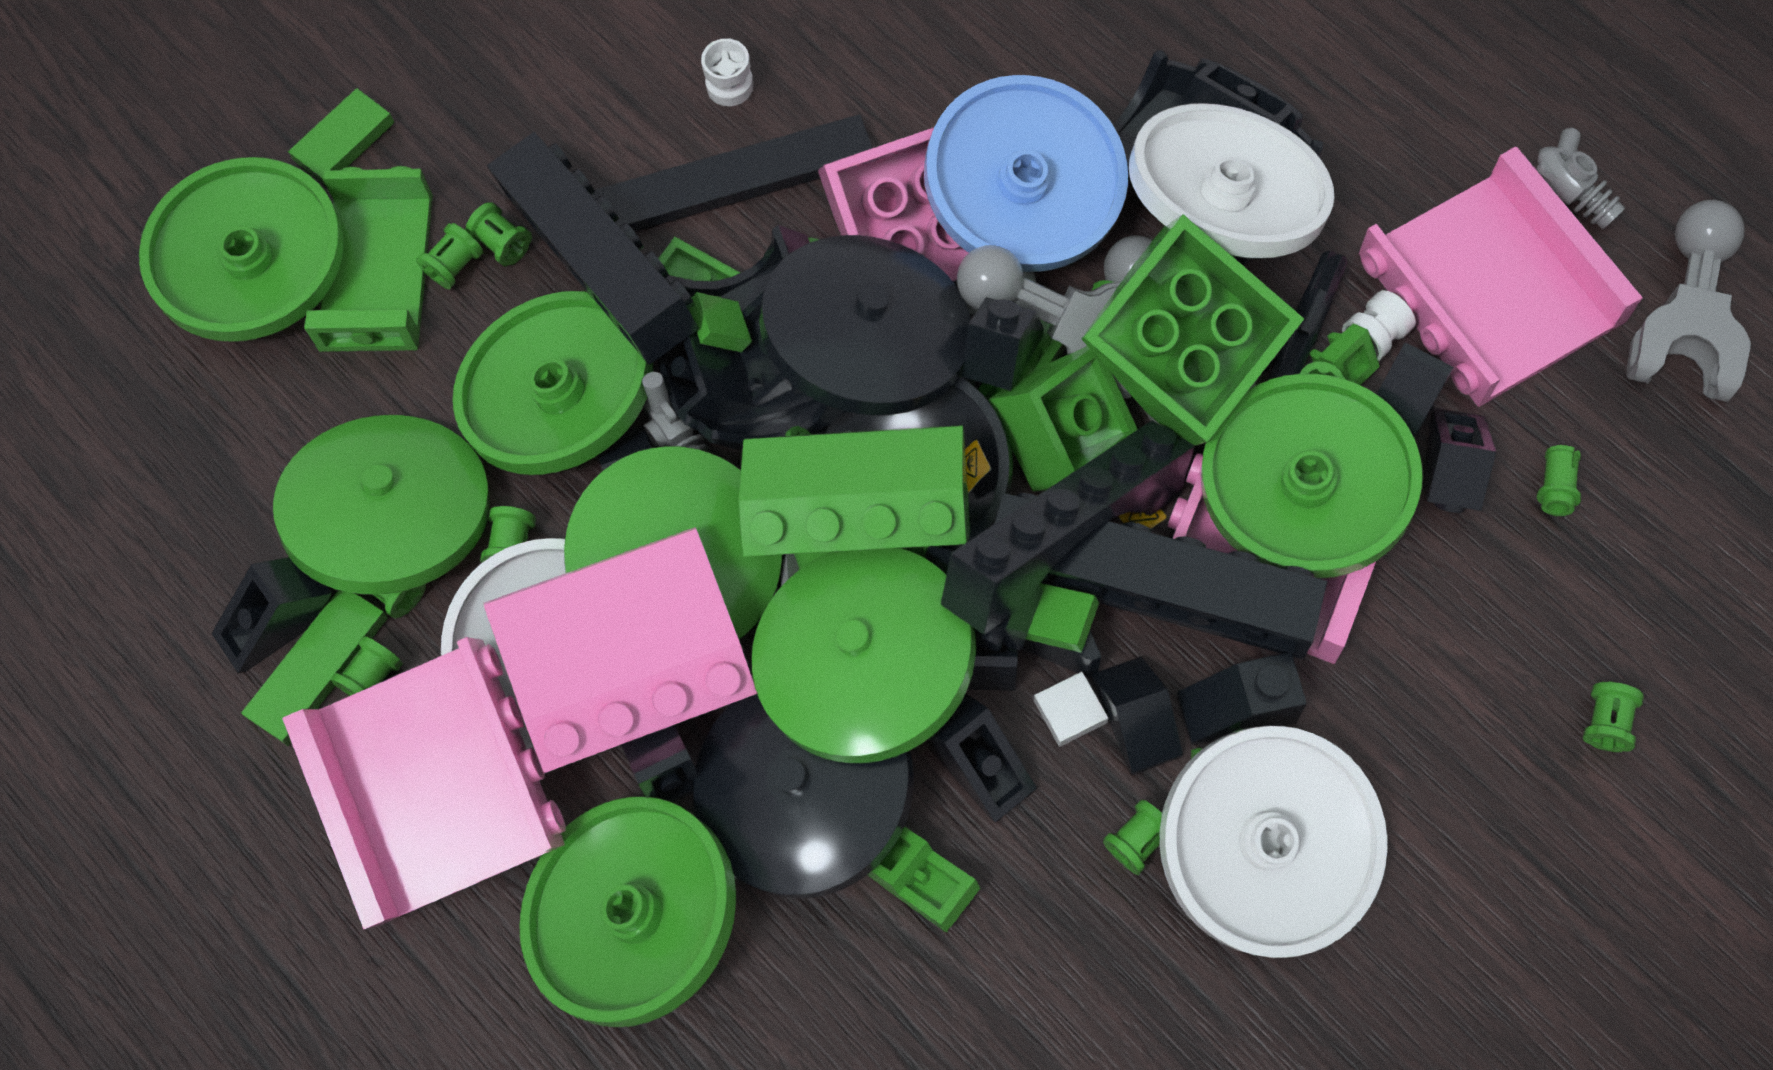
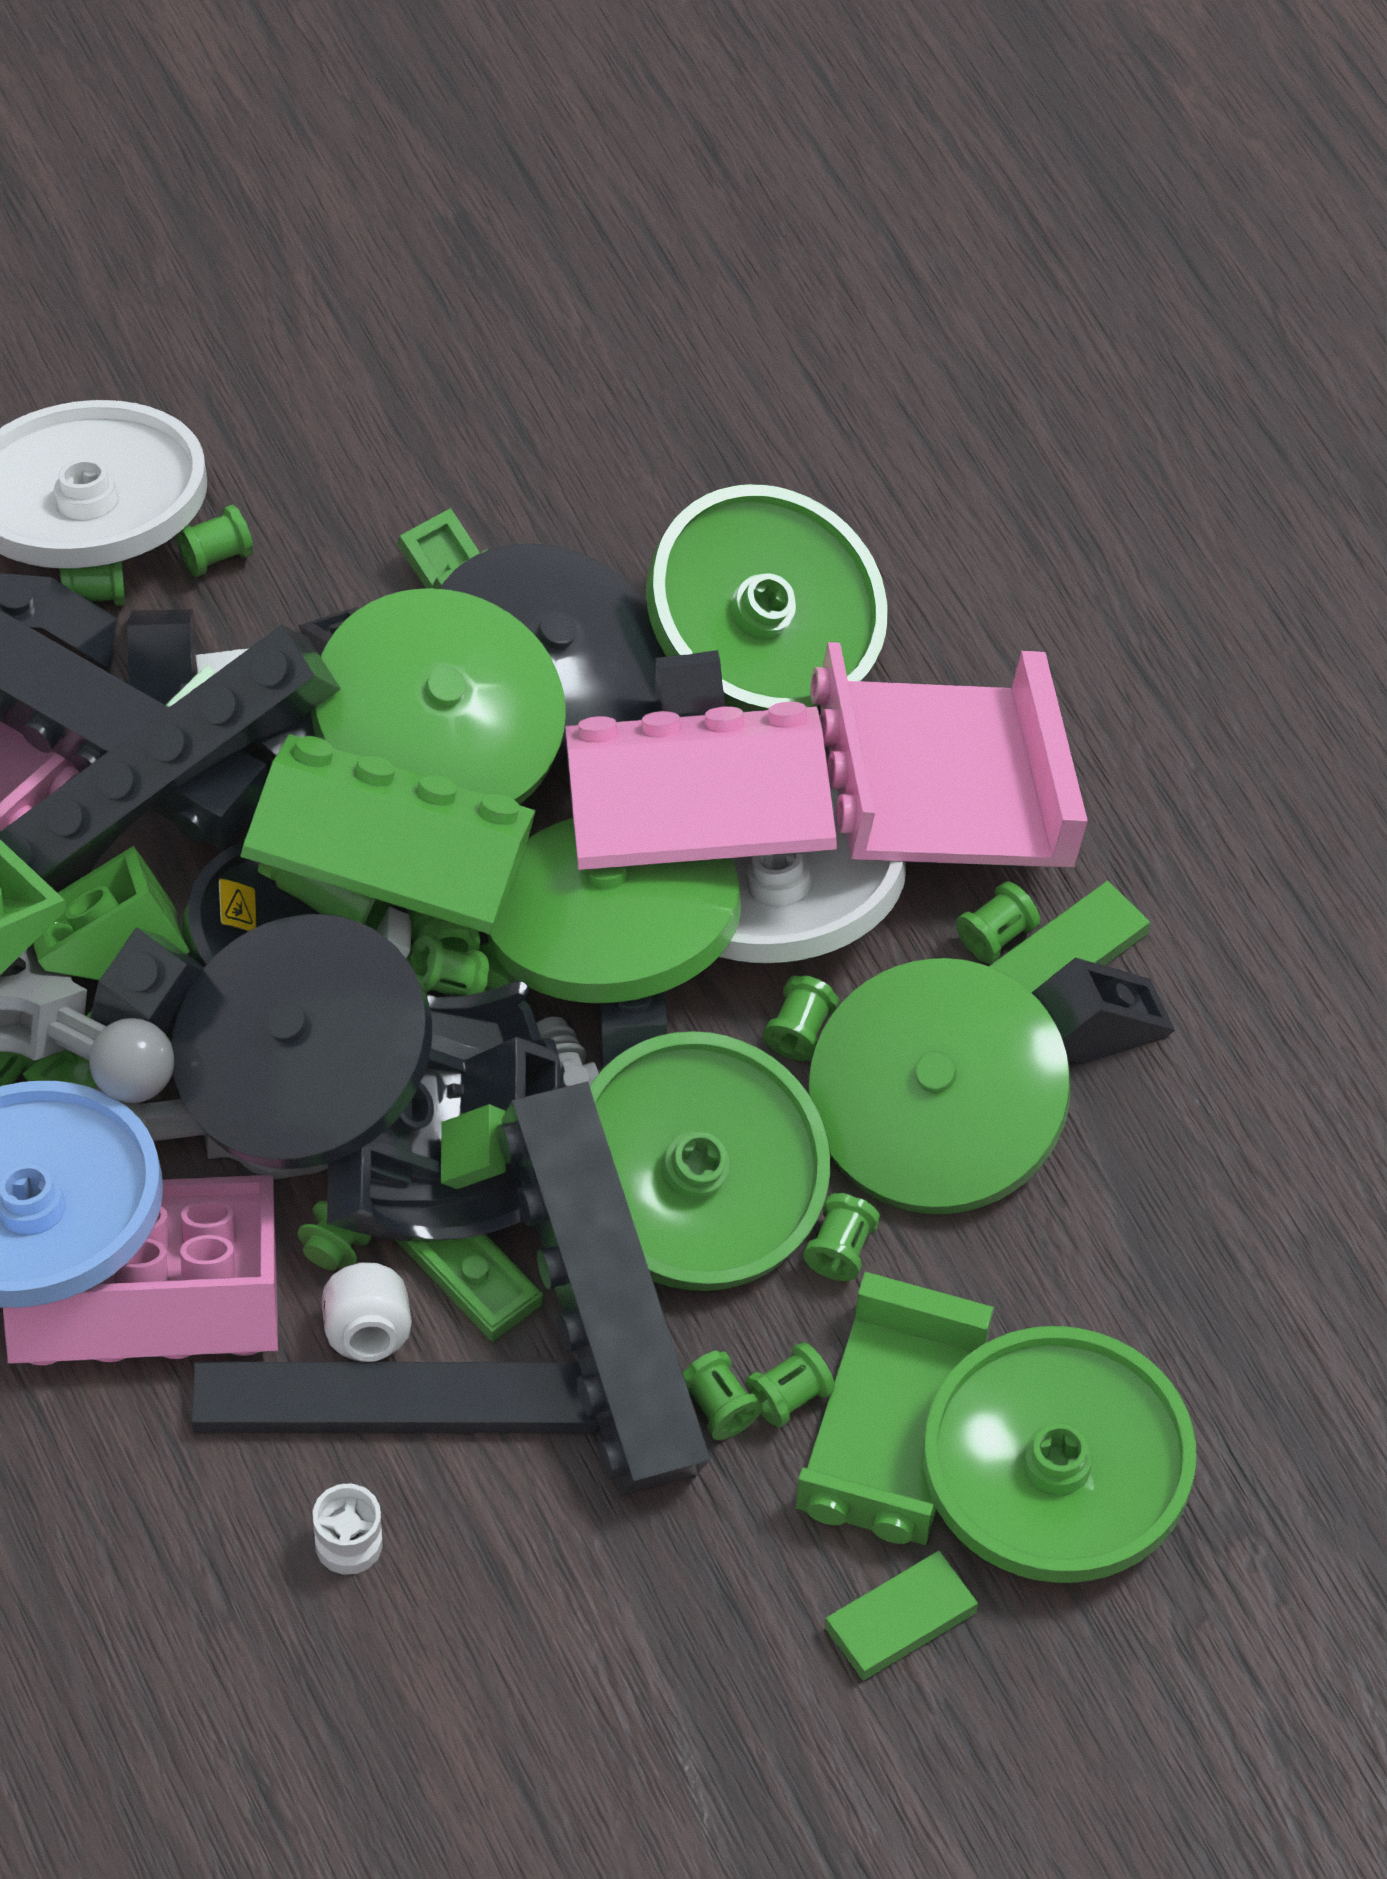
camera: 170 degrees left, 10 degrees down
(436, 373) = (841, 1237): none -> bright green bush
(760, 208) = (366, 1312): none -> white head

